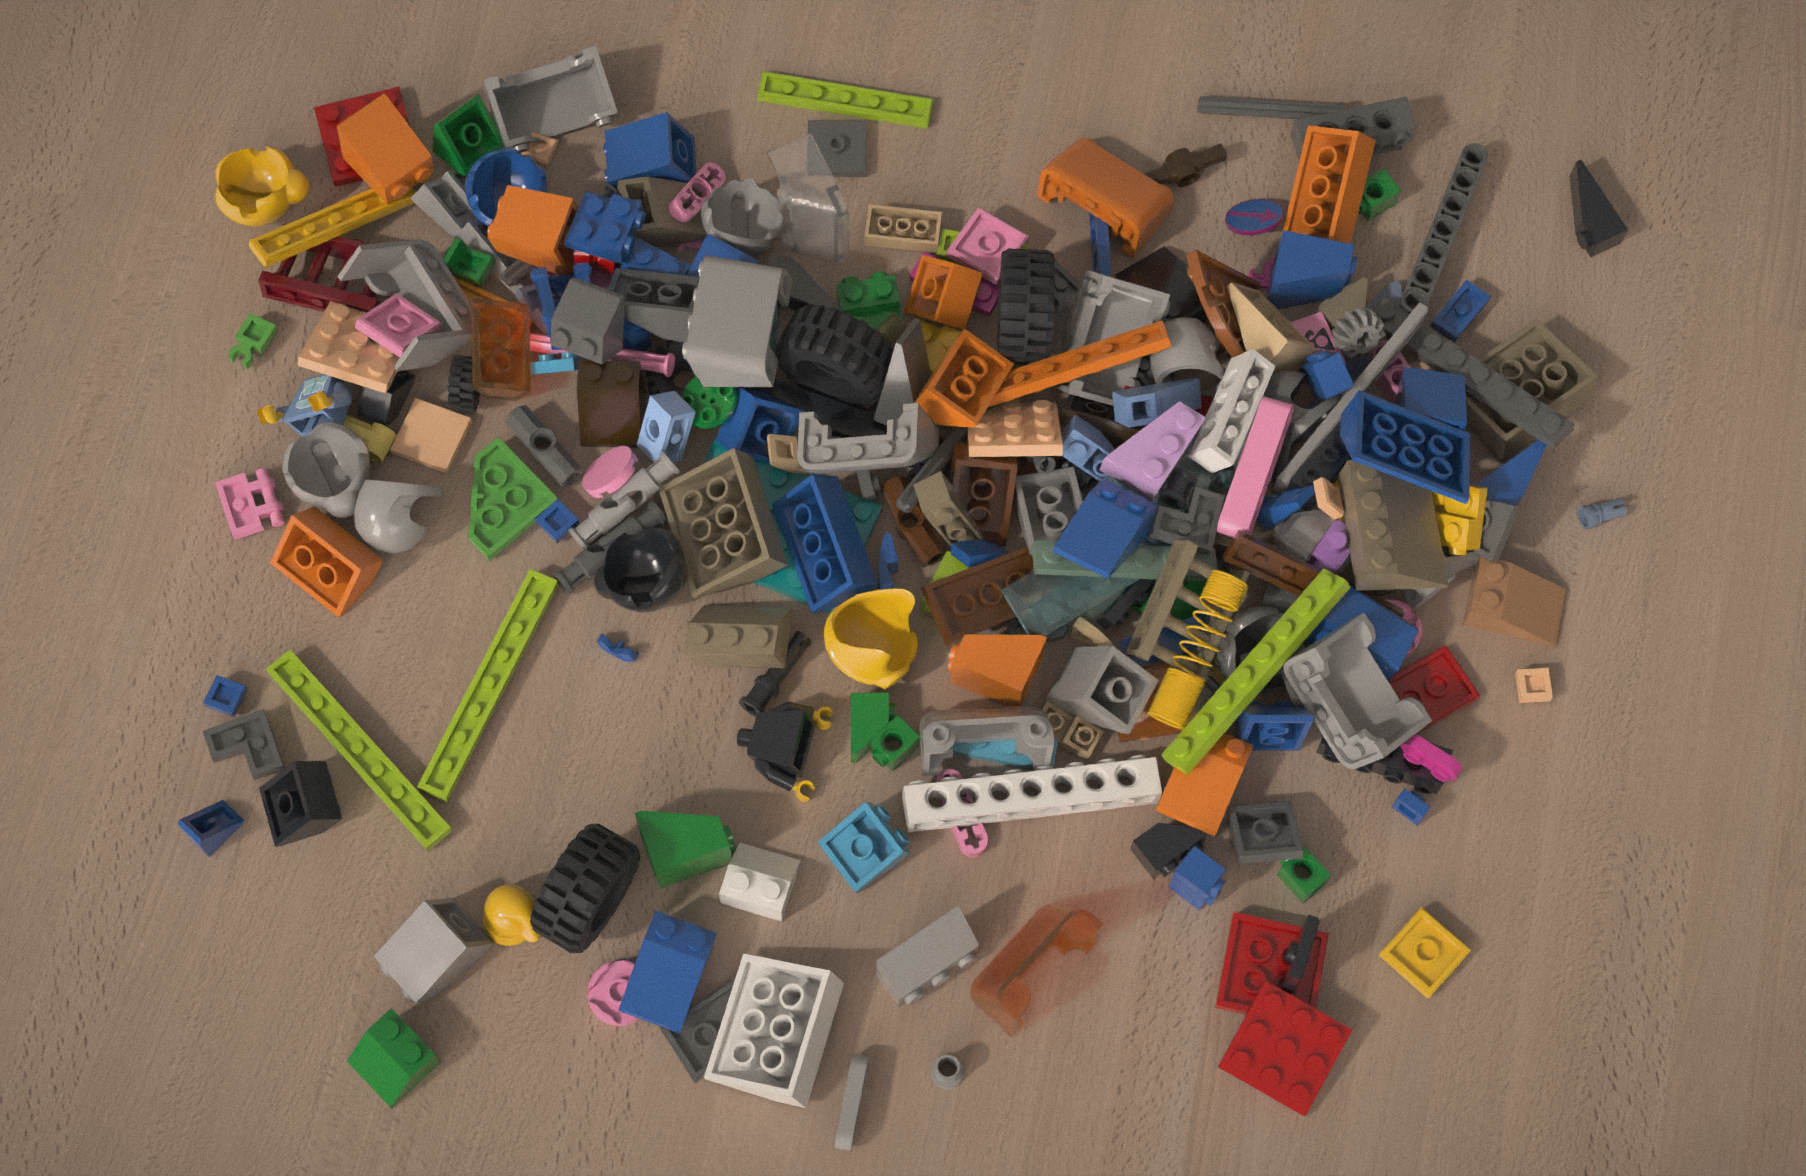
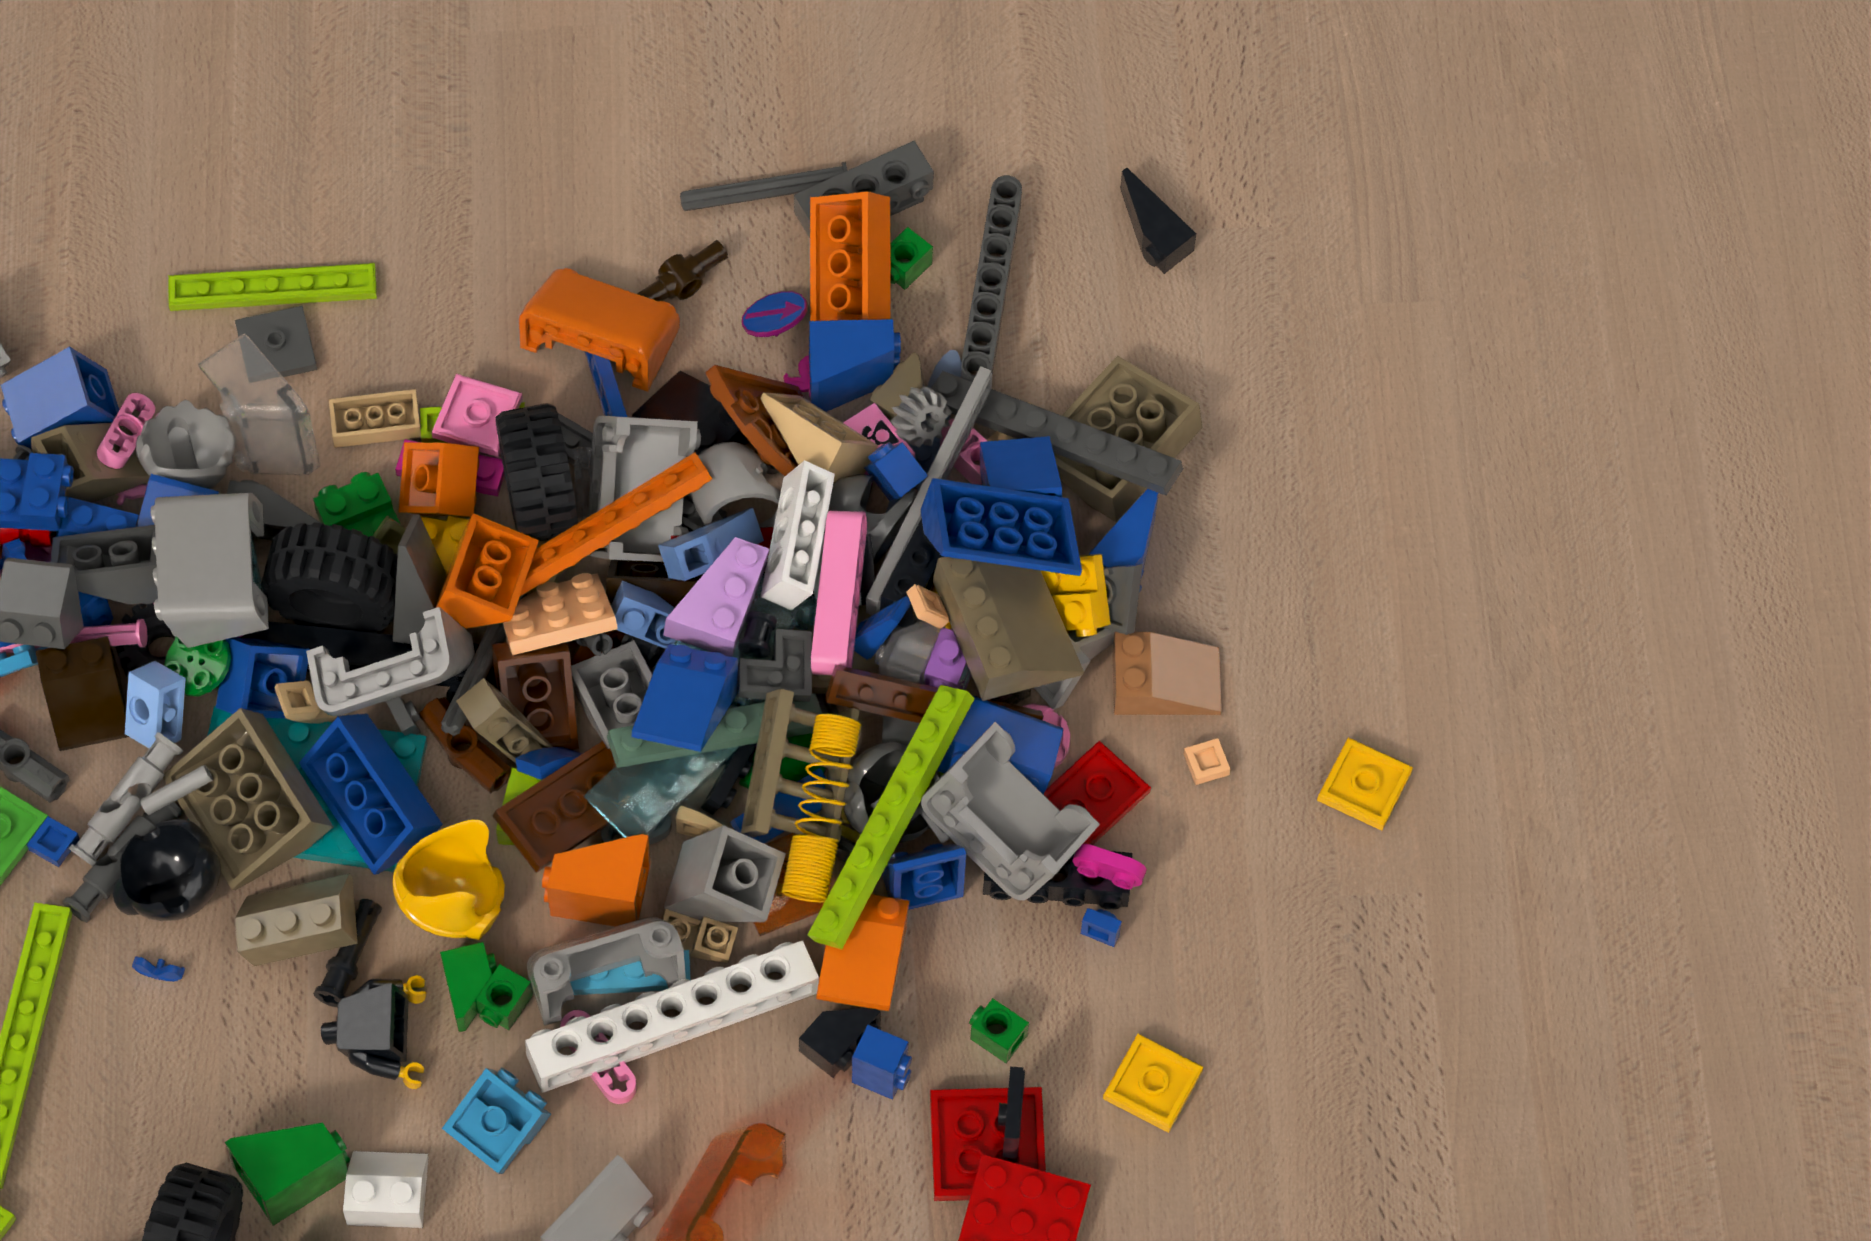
camera: 15 degrees left, 5 degrees down
(609, 471) = (101, 770): bright pink tile -> none
(666, 503) = (176, 789): none -> light grey piece
(887, 562) = (447, 797): blue slope -> none
(1264, 832) = (943, 993): dark grey plate -> none
(1460, 311) = (1031, 367): blue plate -> none
(1595, 514) = (1232, 557): sand blue pin -> none
(1665, 737) = (1365, 784): none -> yellow plate

